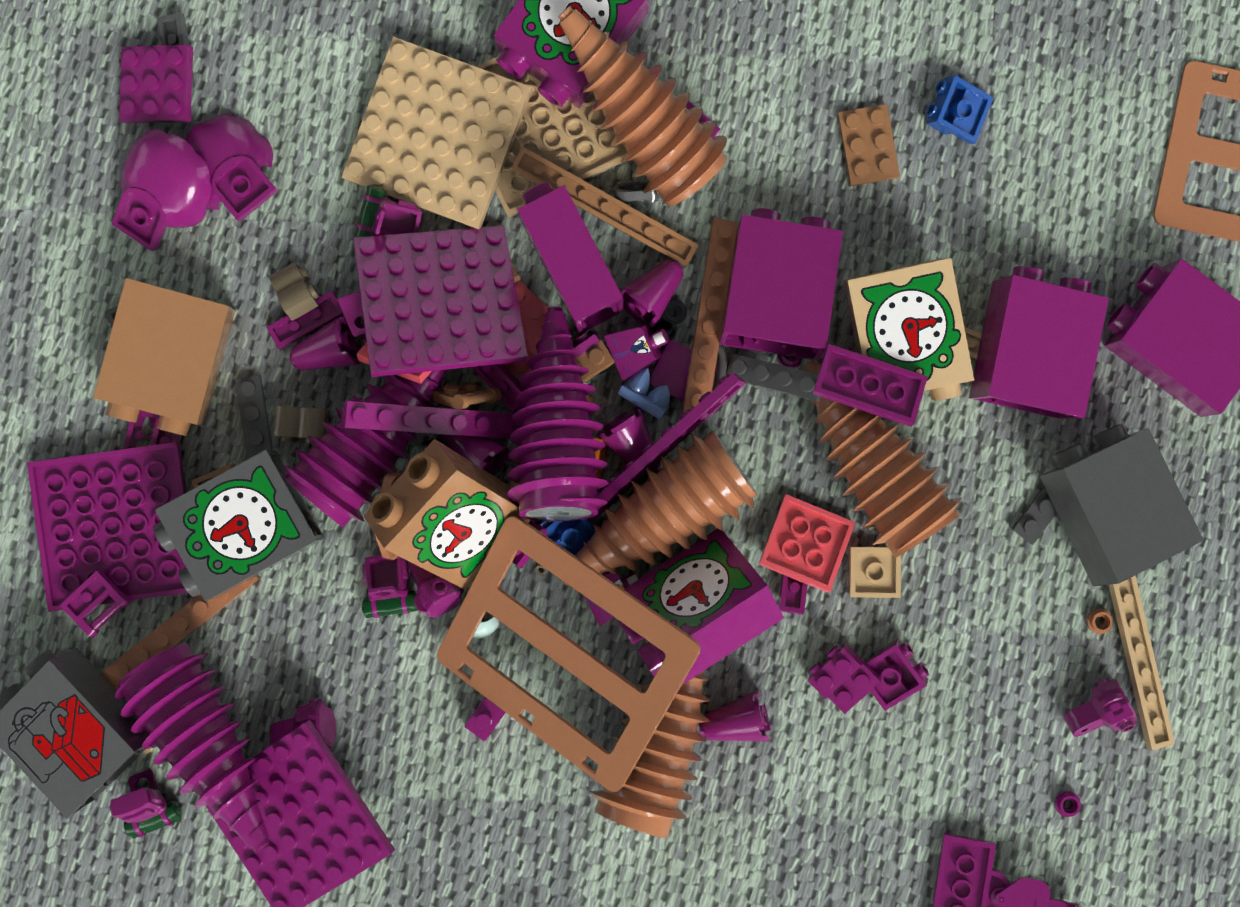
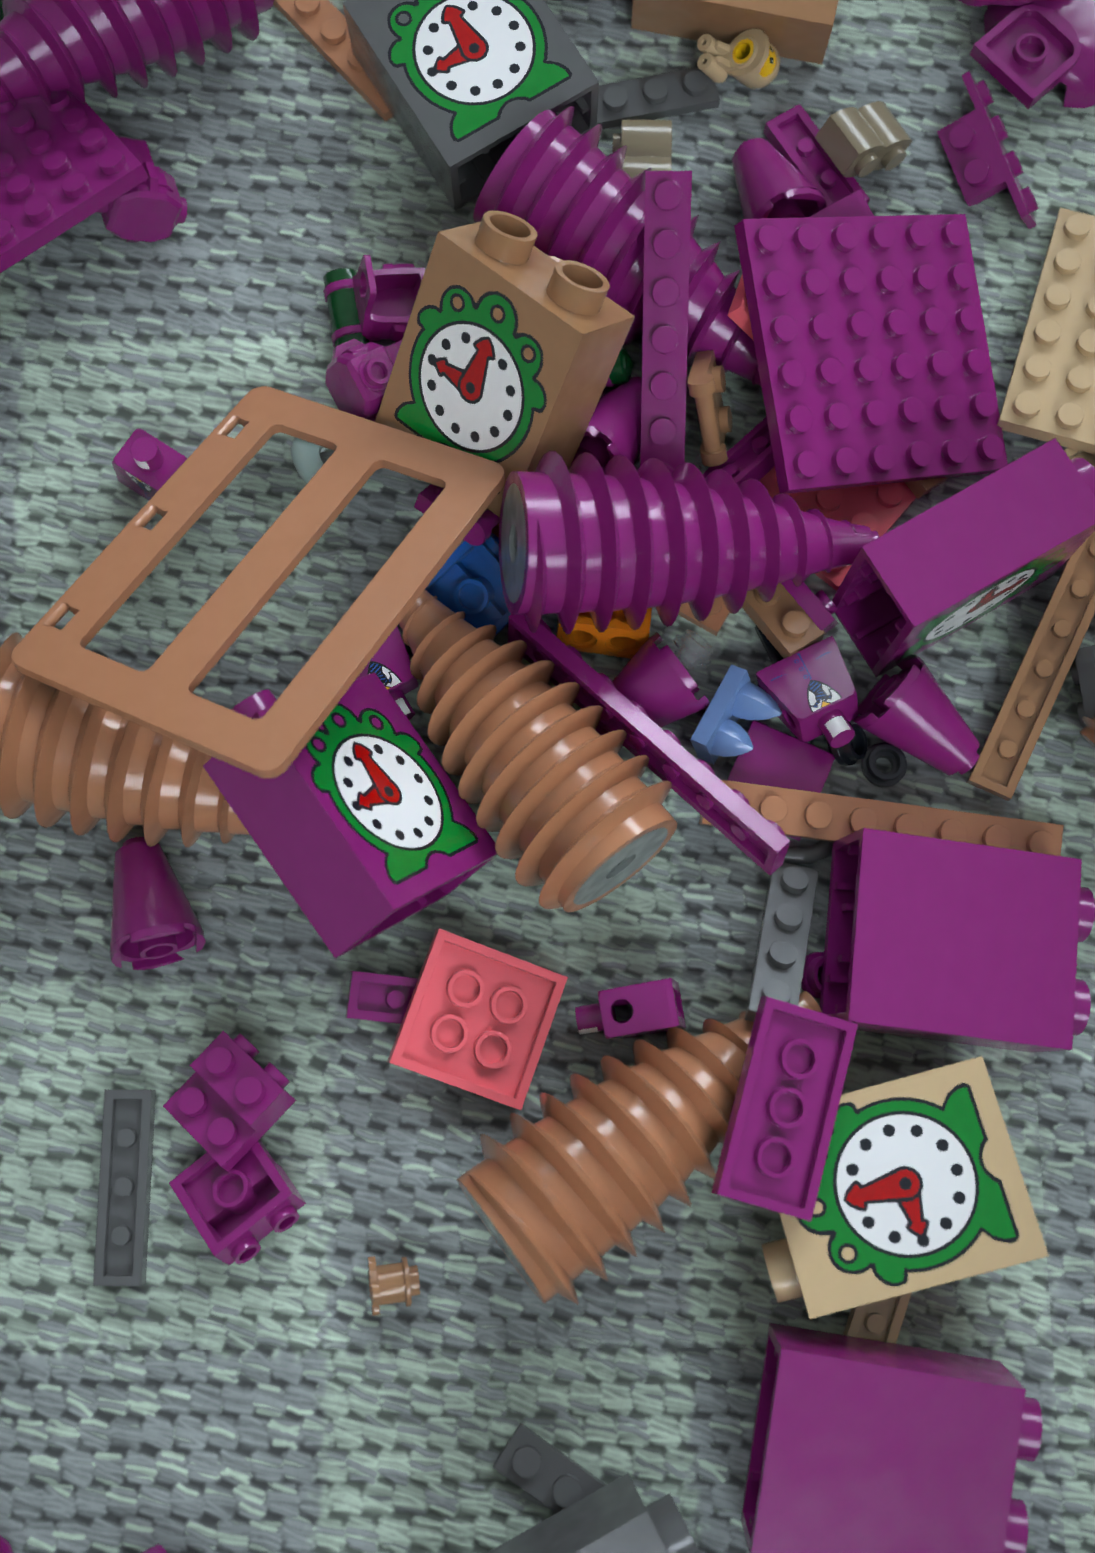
camera: 80 degrees right, 10 degrees down
(235, 357) = (747, 59): none -> tan piece
(304, 220) = (979, 155): none -> magenta bracket
(384, 216) = (1005, 275): magenta piece -> none
(804, 448) = (654, 1004): none -> magenta torso
(874, 573) = (426, 1151): tan plate -> none
(885, 734) = (124, 1188): none -> dark grey plate
(941, 593) = (392, 1283): none -> medium nougat brick

